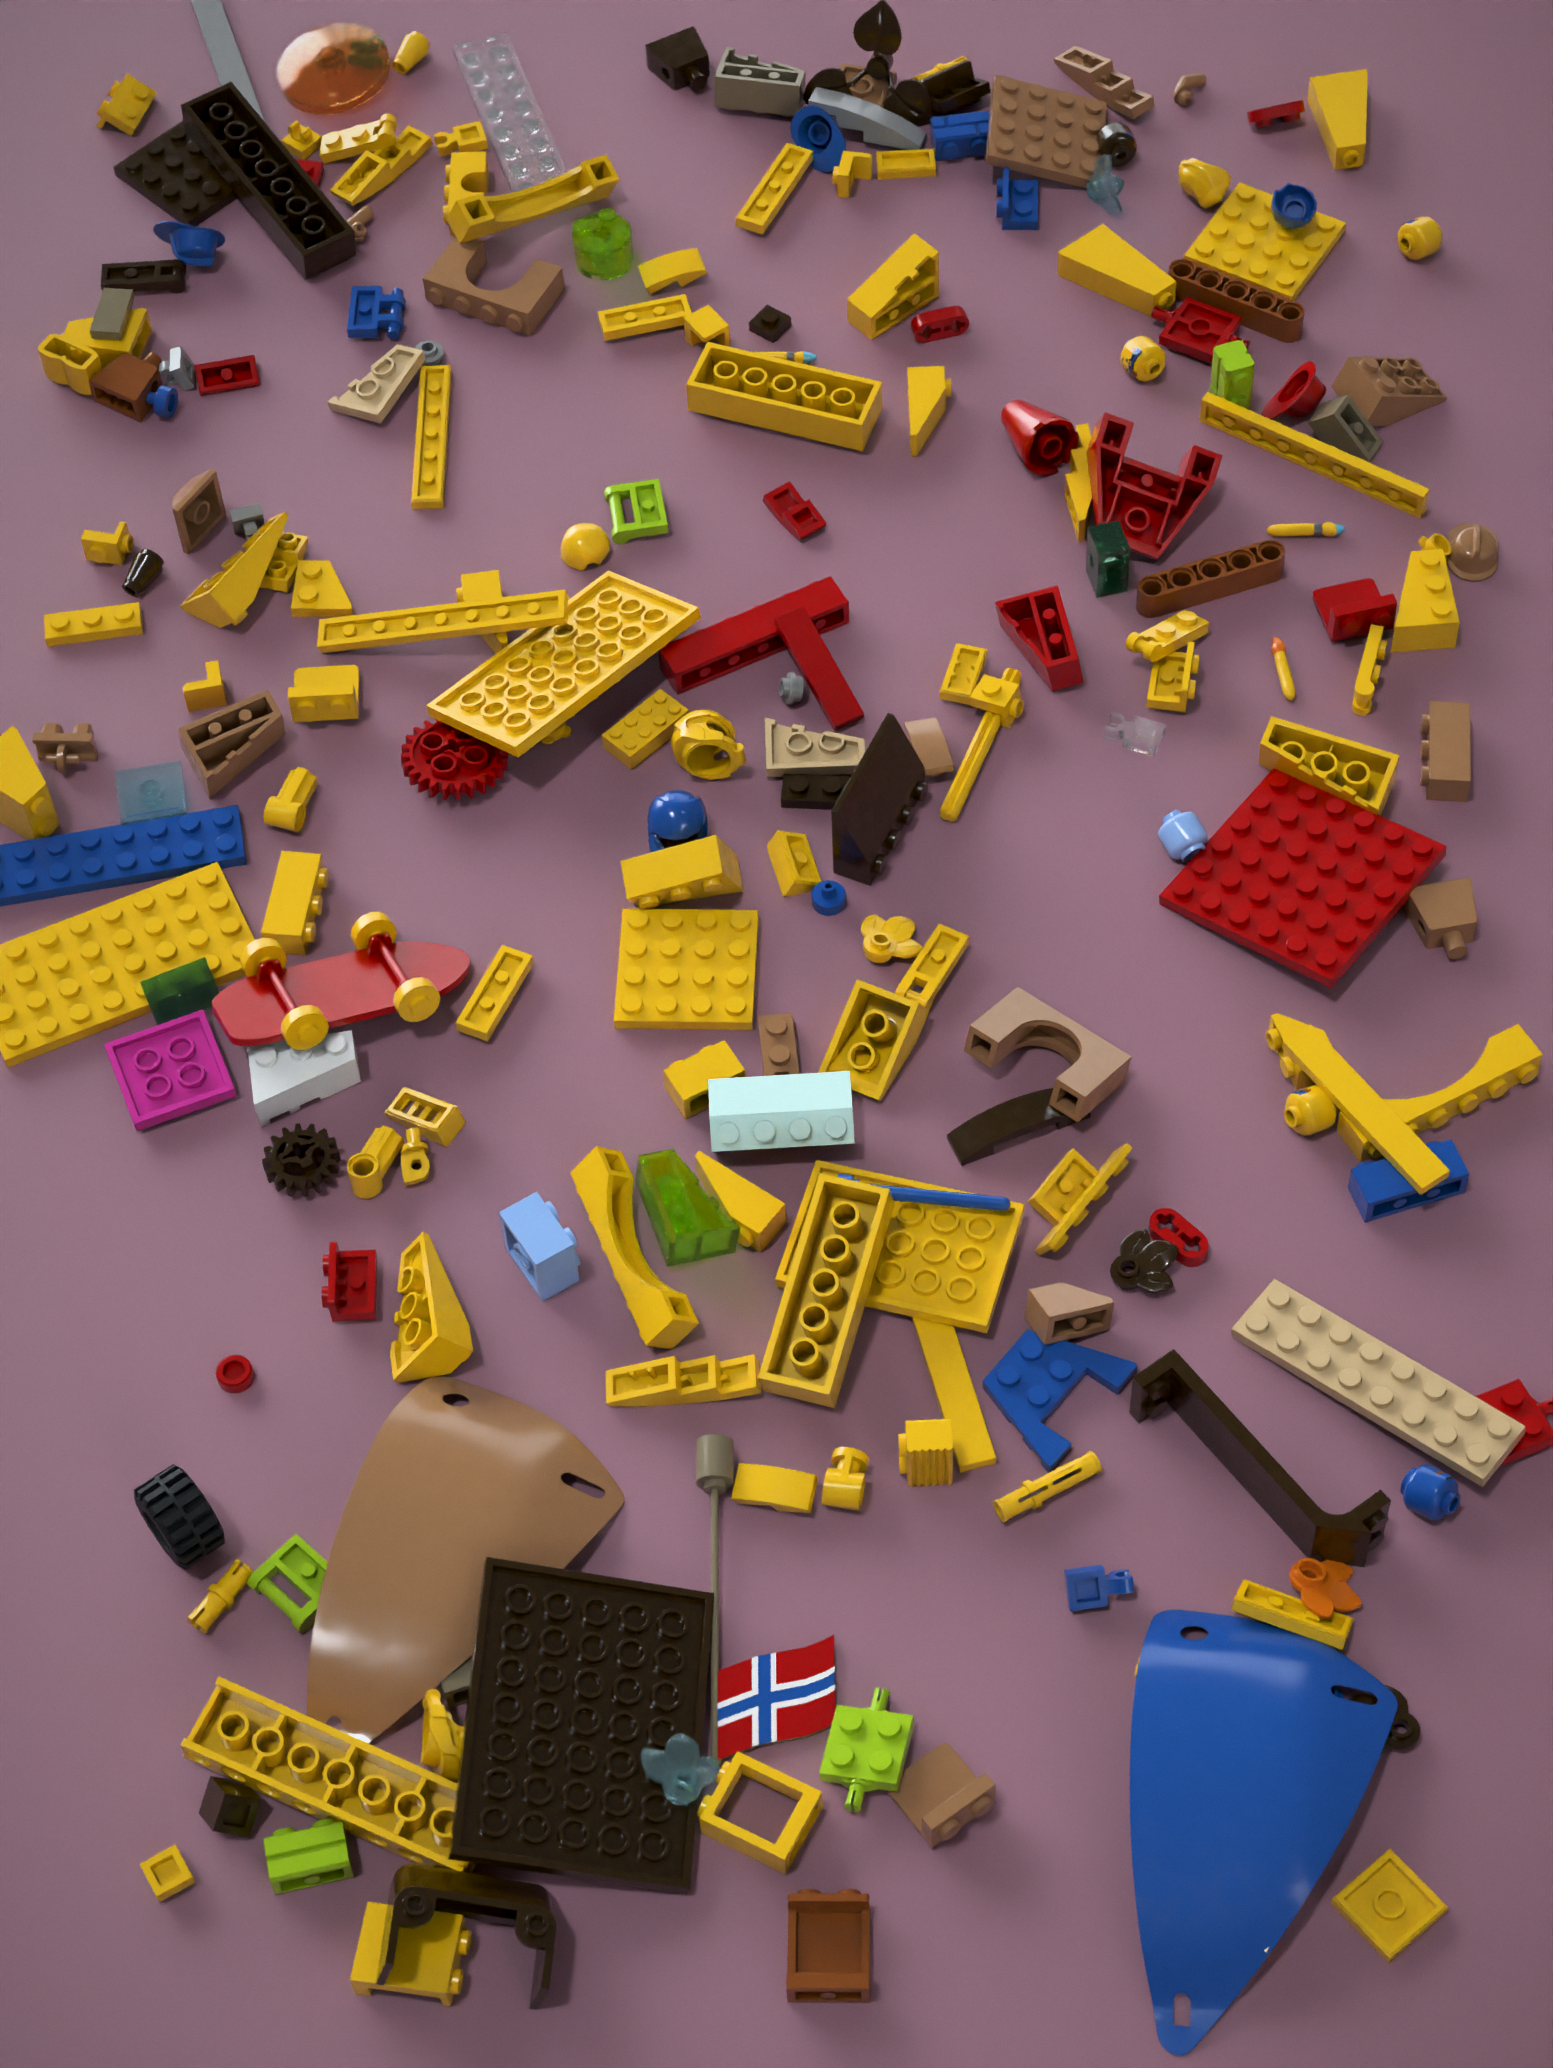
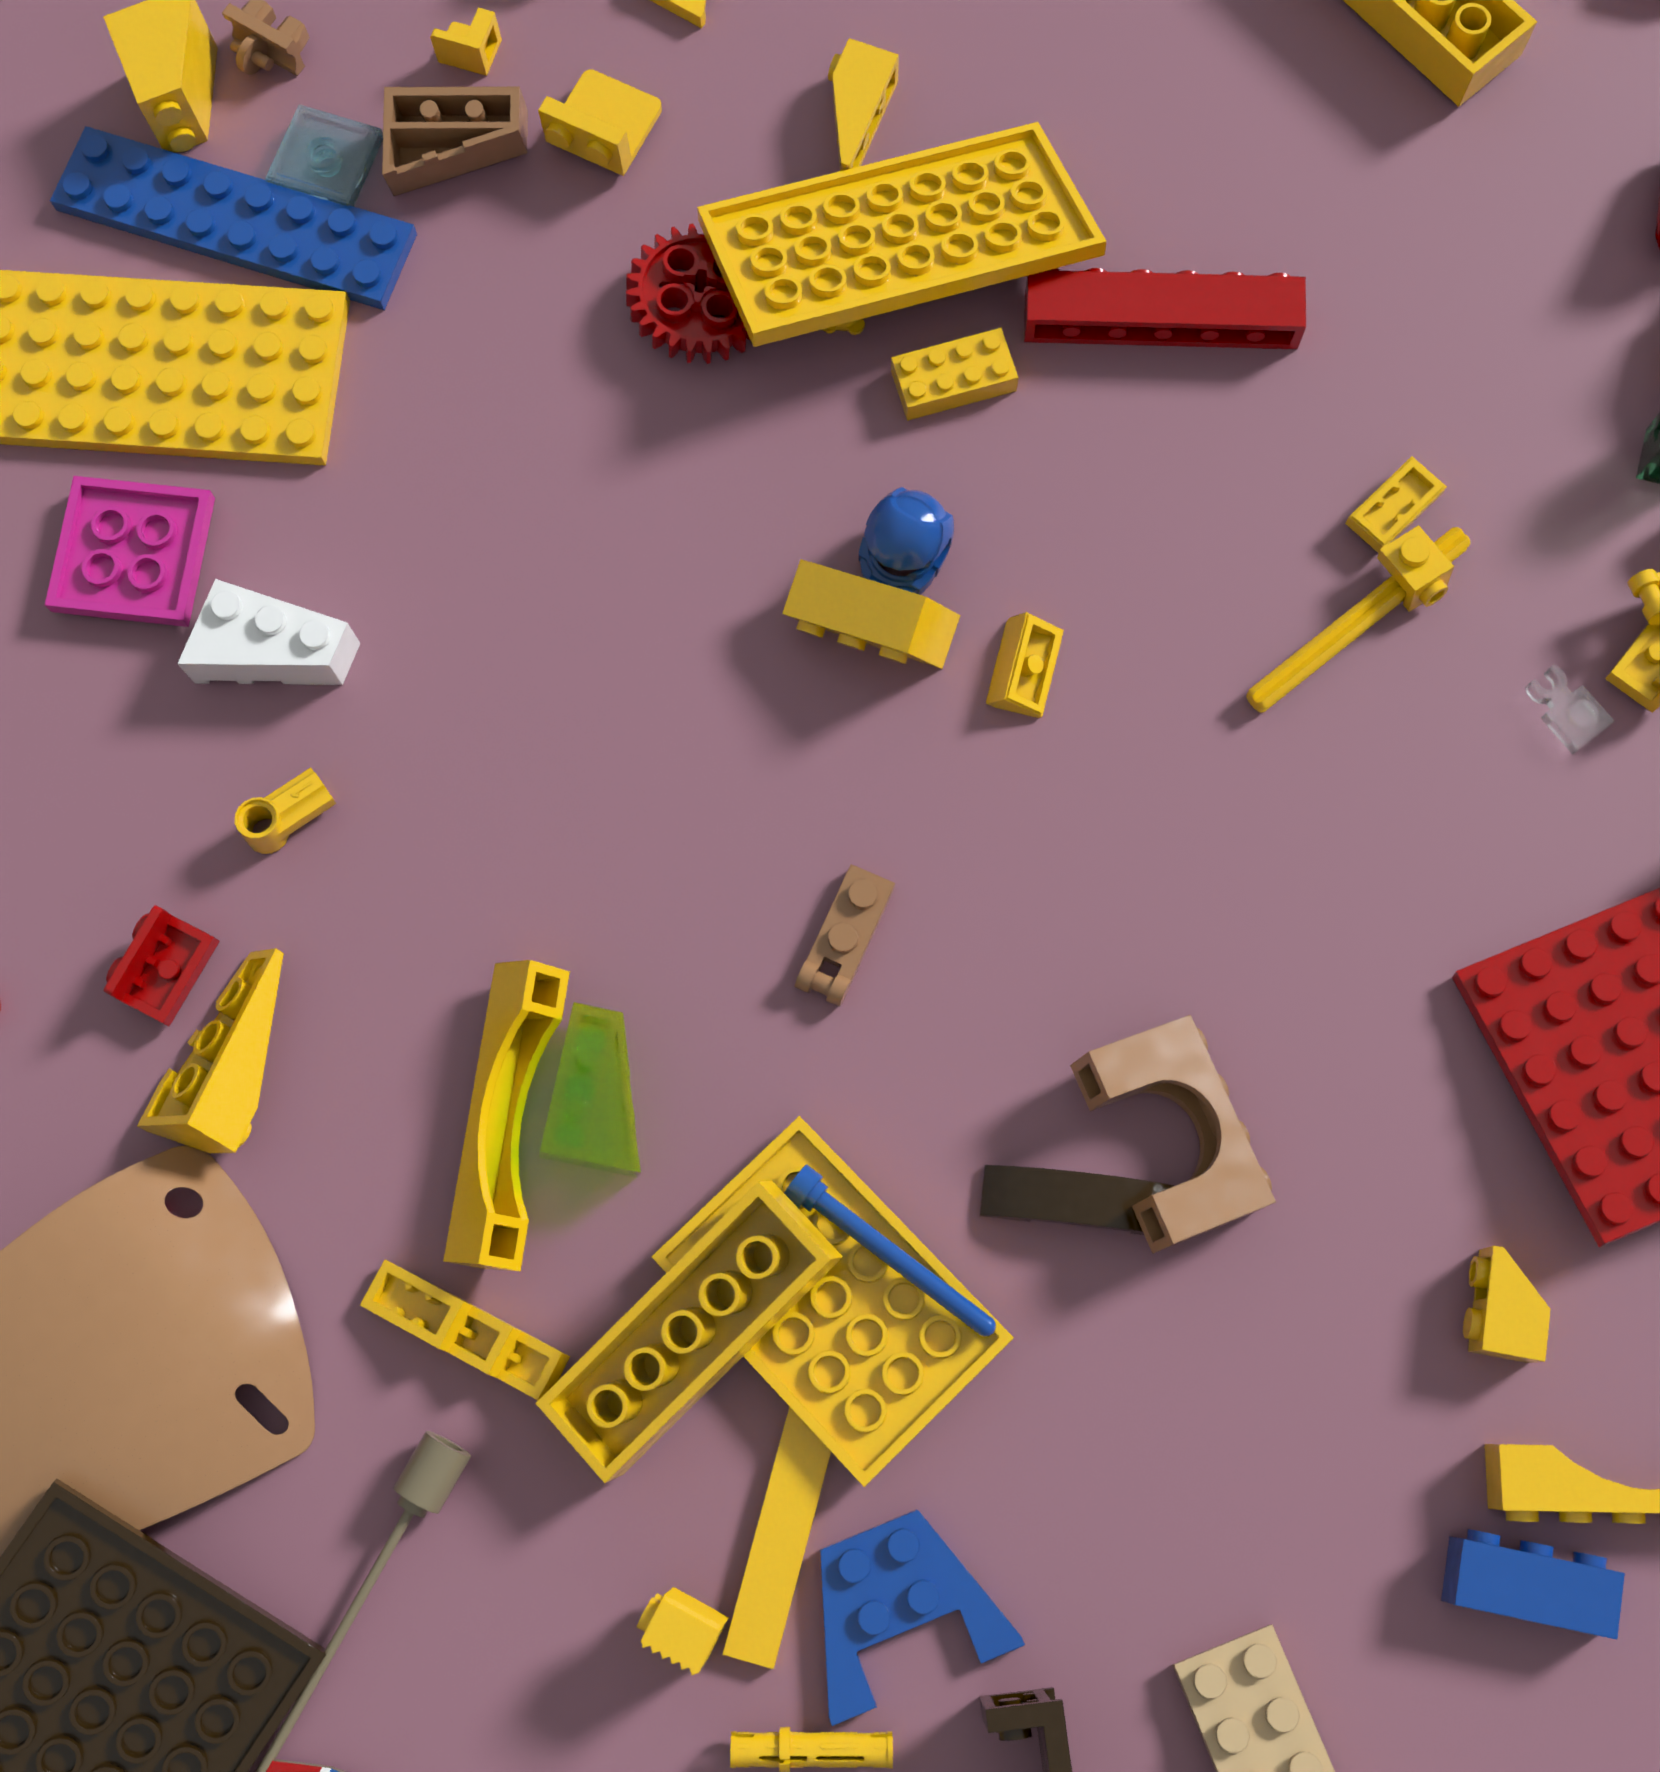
camera: 30 degrees right, 20 degrees up
(180, 991) = (198, 453): clear green plate -> none
(289, 806) = (467, 260): yellow piece -> none
(295, 901) = (397, 398): yellow brick -> none
(301, 1160) = (189, 747): dark brown gear -> none
(336, 991) = (307, 547): piece -> none
(412, 1153) = (335, 824): yellow piece -> none
(443, 621) = (791, 97): yellow plate -> none
(443, 1126) = (397, 804): yellow slope -> none
(494, 993) = (558, 653): yellow plate -> none
(540, 1245) = (394, 1052): light blue brick -> none
(584, 545) = (1031, 70): yellow hair -> none
(646, 507) = (1136, 57): lime plate -> none
(686, 969) = (807, 745): yellow plate -> none
(688, 1078) = (732, 918): yellow brick -> none
(702, 736) = (1006, 429): yellow helmet -> none
(750, 1207) = (672, 1129): yellow slope -> none
(775, 1487) = (481, 1551): yellow slope -> none
(780, 1111) = (789, 1030): light aqua slope -> none
(791, 688) = (1165, 411): light grey plate -> none
(793, 512) = (1319, 152): red slope -> none
(807, 752) = (1131, 515): tan wing -> none
(811, 791) = (1110, 576): dark brown plate -> none
(819, 668) = (1213, 403): red tile -> none
(828, 898) = (1038, 739): blue tile -> none
(846, 1484) = (567, 1597): yellow piece -> none
(874, 1038) = (969, 981): yellow slope -> none
(876, 804) = (1167, 649): dark brown slope -> none
(889, 938) = (1083, 835): yellow plate -> none
(925, 402) = (1582, 76): yellow slope -> none
(929, 745) = (1288, 590): medium nougat slope -> none
(933, 965) = (1106, 914): yellow plate -> none
(1043, 635) = (1530, 506): red wedge -> none
(1066, 1312) = (975, 1520): medium nougat slope -> none
(1069, 1190) = (1089, 1347): yellow bracket -> none
(1149, 1261) = (1128, 1503): dark brown plate -> none
(1181, 1234) = (1199, 1483): red beam -> none
(1182, 835) = (1539, 901): light blue head -> none
(1310, 1111) = (1466, 1407): yellow head -> none
(1366, 1109) = (1535, 1469): yellow tile -> none

